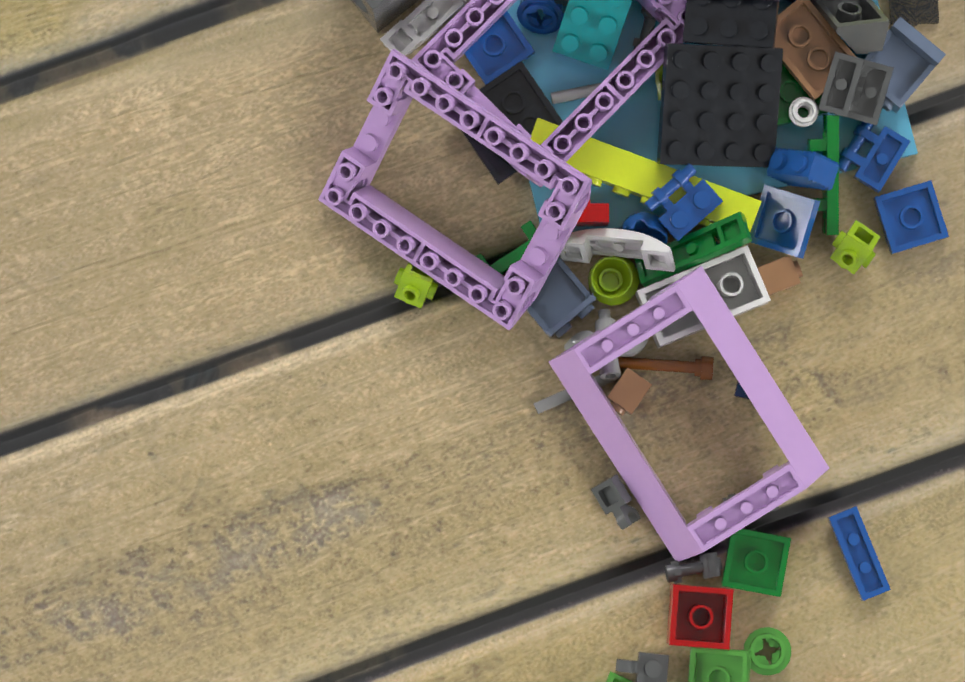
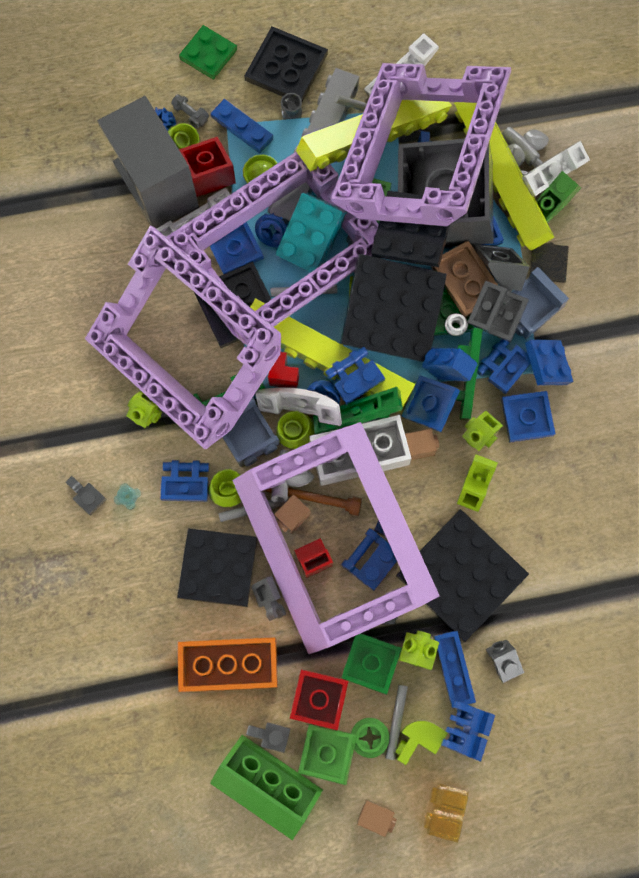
camera: 10 degrees right, 10 degrees down
(362, 408) = (87, 497): none -> dark grey plate
(408, 392) = (125, 490): none -> clear light blue plate
(484, 378) = (184, 488): none -> blue plate
(542, 379) = (222, 489): none -> lime hat
(544, 472) = (217, 567): none -> black plate
(582, 592) = (227, 665): none -> orange brick
(664, 442) = (313, 558): none -> red piece
(708, 565) = (333, 660): dark grey bar -> none
(745, 438) = (377, 565): none -> blue plate
(796, 627) = (396, 722): none -> light grey bar
(813, 537) = (419, 650): none -> lime brick
(828, 636) = (422, 733): none -> lime brick
(856, 317) = (476, 483): none -> lime brick
(860, 432) = (469, 574): none -> black plate
(886, 637) = (473, 722): none -> blue legs
(919, 533) = (505, 660): none -> bracket
(929, 142) = (549, 362): none -> blue plate

